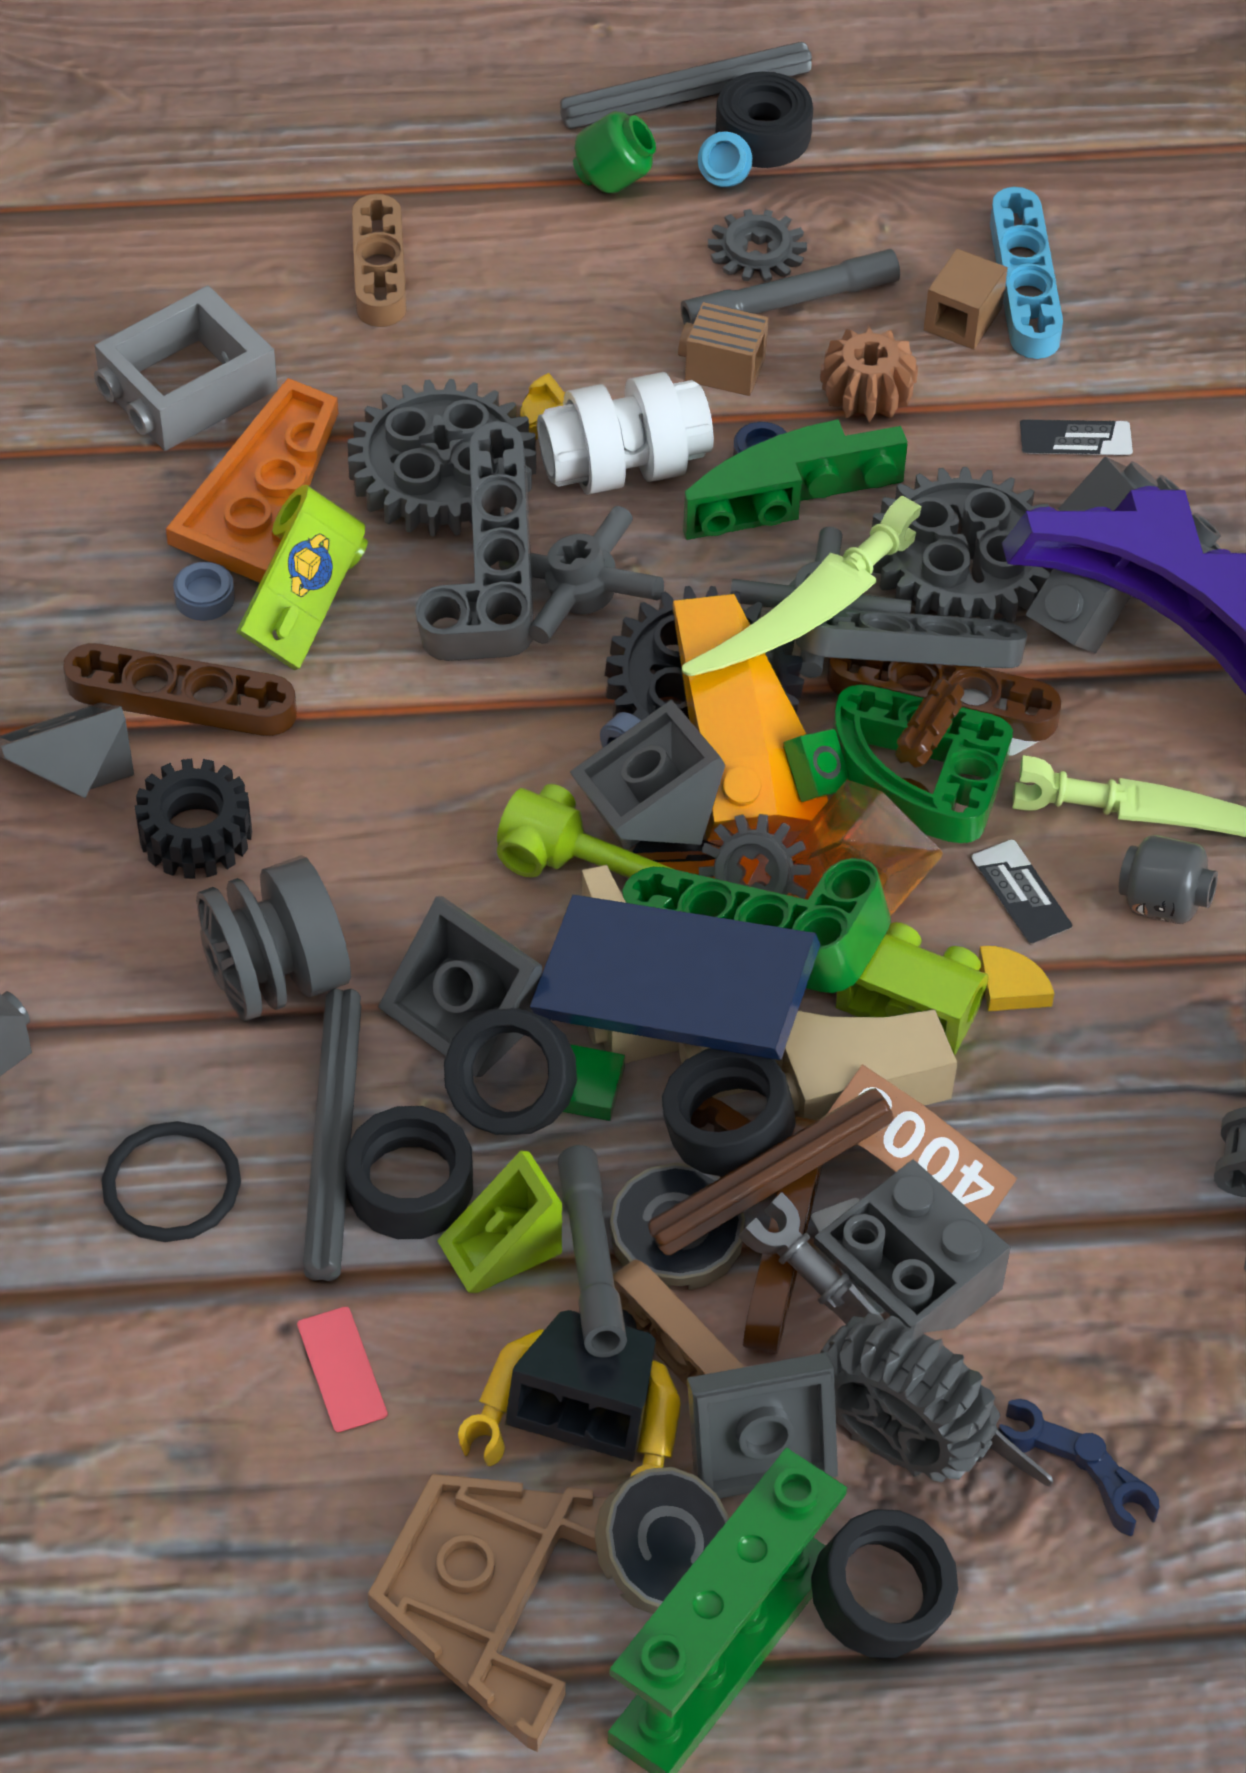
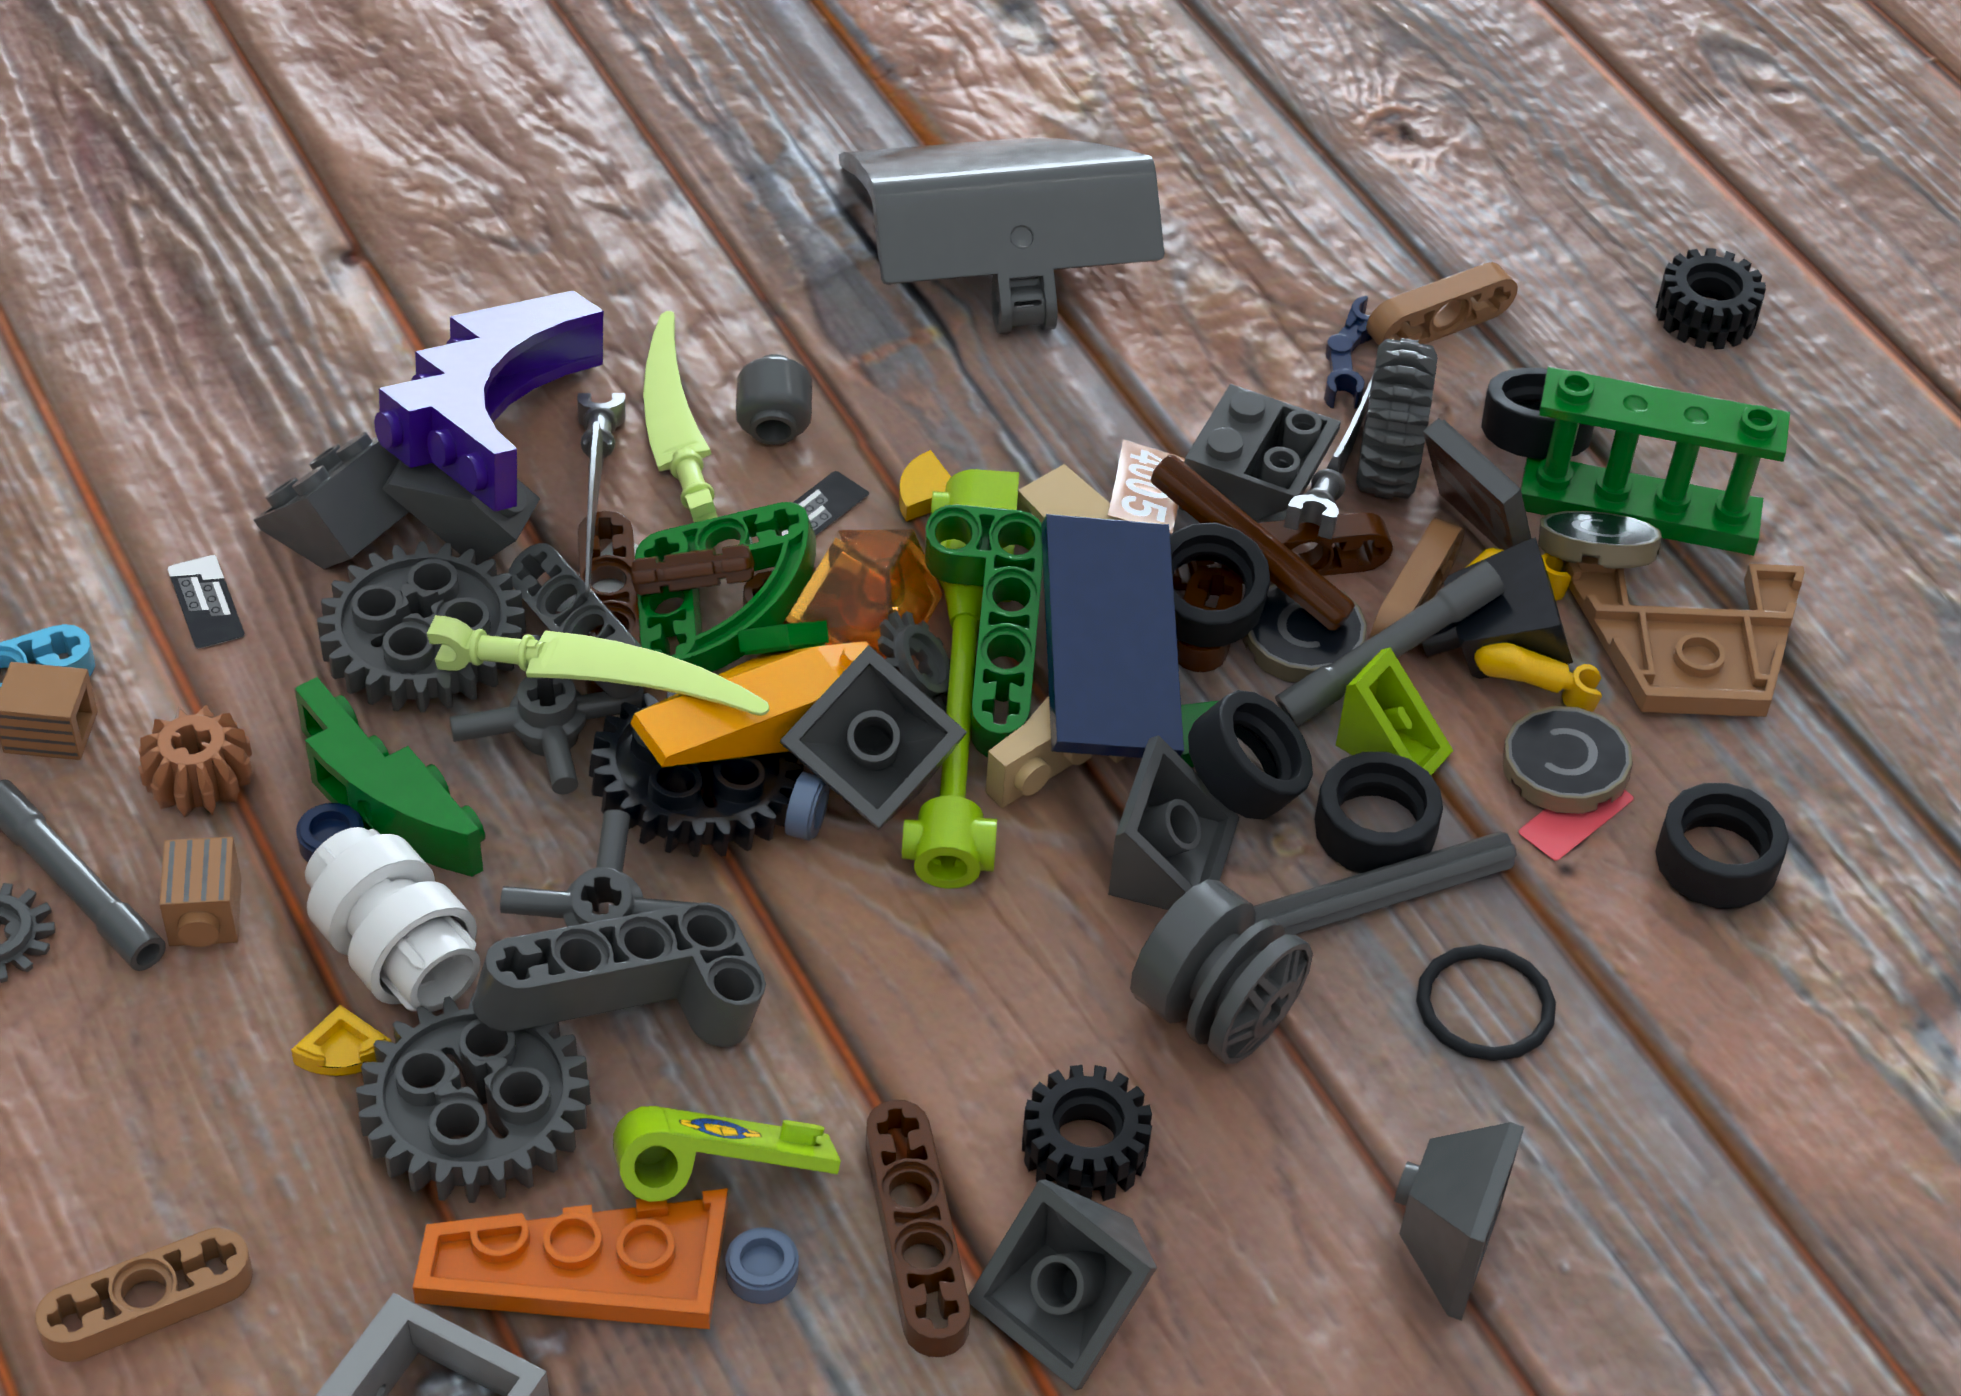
camera: 115 degrees left, 5 degrees down
(220, 1404) = (1713, 881): none -> black tyre
(401, 1378) = (1567, 759): none -> black tile
(1099, 693) = (597, 443): none -> flat silver sword
(1107, 1579) = (1471, 299): none -> medium nougat beam

